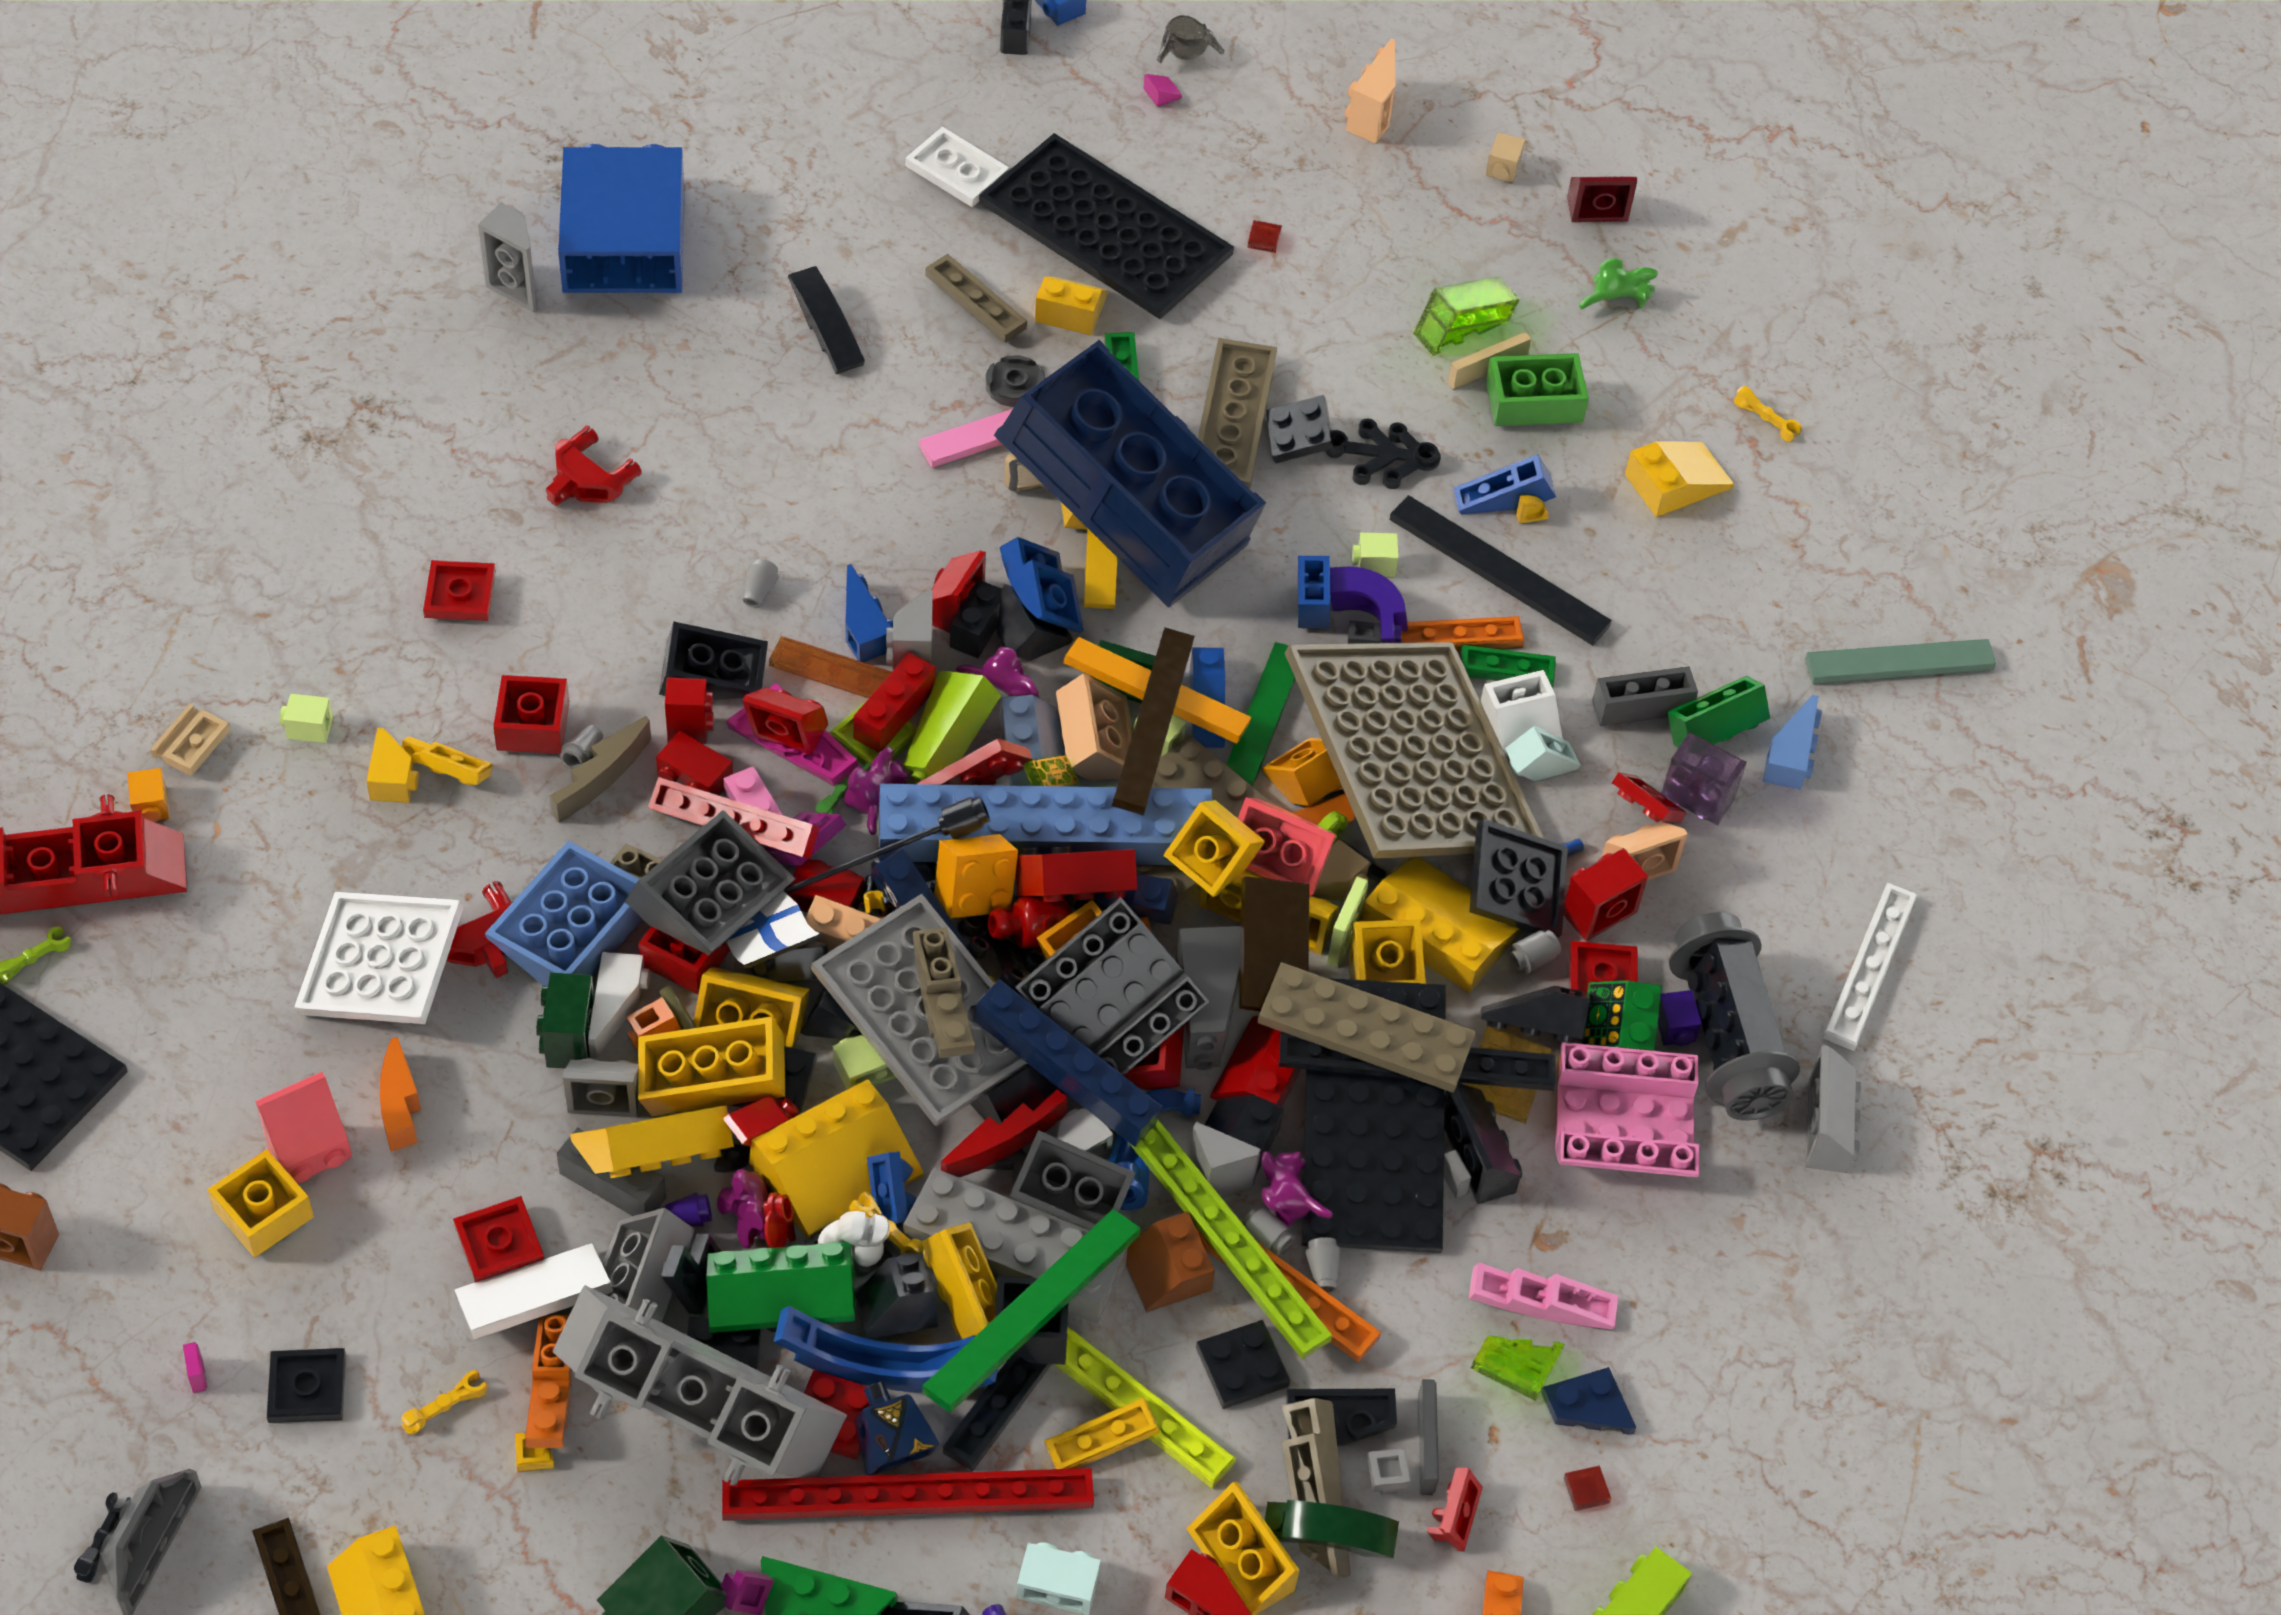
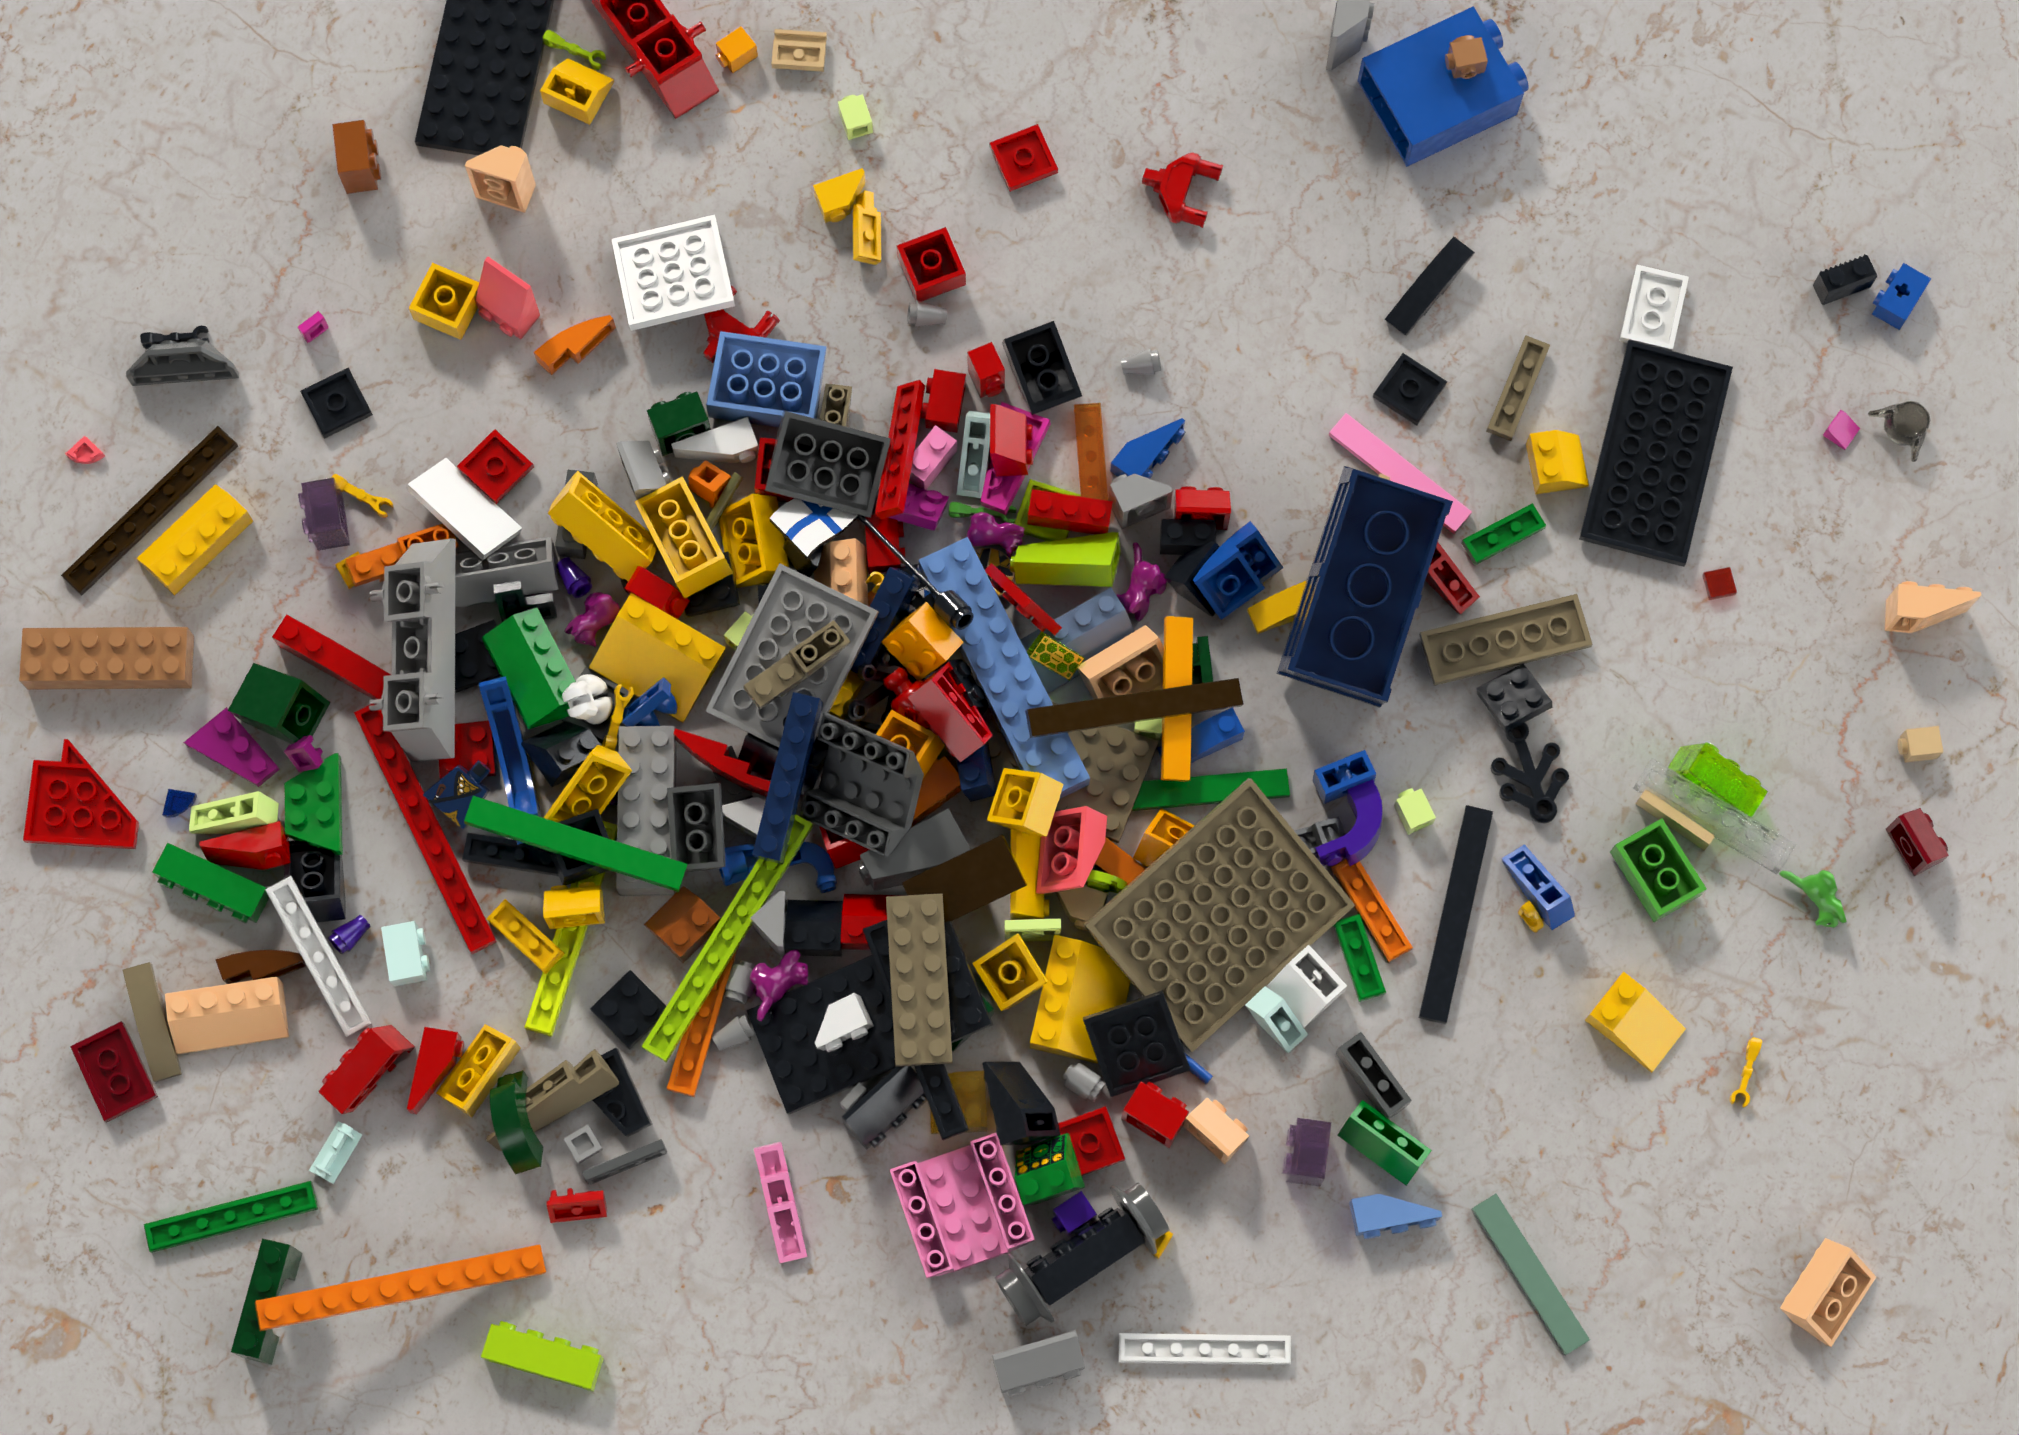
camera: 70 degrees right, 20 degrees up
(88, 970) = (576, 90): none -> yellow slope
(153, 1071) = (502, 177): none -> light nougat slope
(452, 1440) = (324, 514): none -> clear purple brick
(608, 762) = (921, 339): dark tan slope -> none
(618, 166) = (1466, 57): none -> medium nougat brick
(643, 1509) = (330, 657): none -> red slope
(773, 763) = (974, 454): none -> light aqua slope
(778, 1220) = (581, 642): red plate -> none
(923, 383) = (1409, 389): none -> black tile
(1012, 378) = (1450, 457): dark grey tile -> none
(1097, 1357) = (573, 906): none -> yellow slope
(1373, 1128) = (842, 1021): none -> white slope
(1517, 1363) = (715, 1204): clear neon green wing -> none
(1529, 313) = (1717, 816): none -> clear brick
(1587, 1488) = (639, 1291): clear red tile -> none
(1589, 1401) = (709, 1268): dark blue wing -> none
(1656, 804) = (1269, 1116): red plate -> none
(2009, 440) = (1828, 1291): none -> light nougat slope

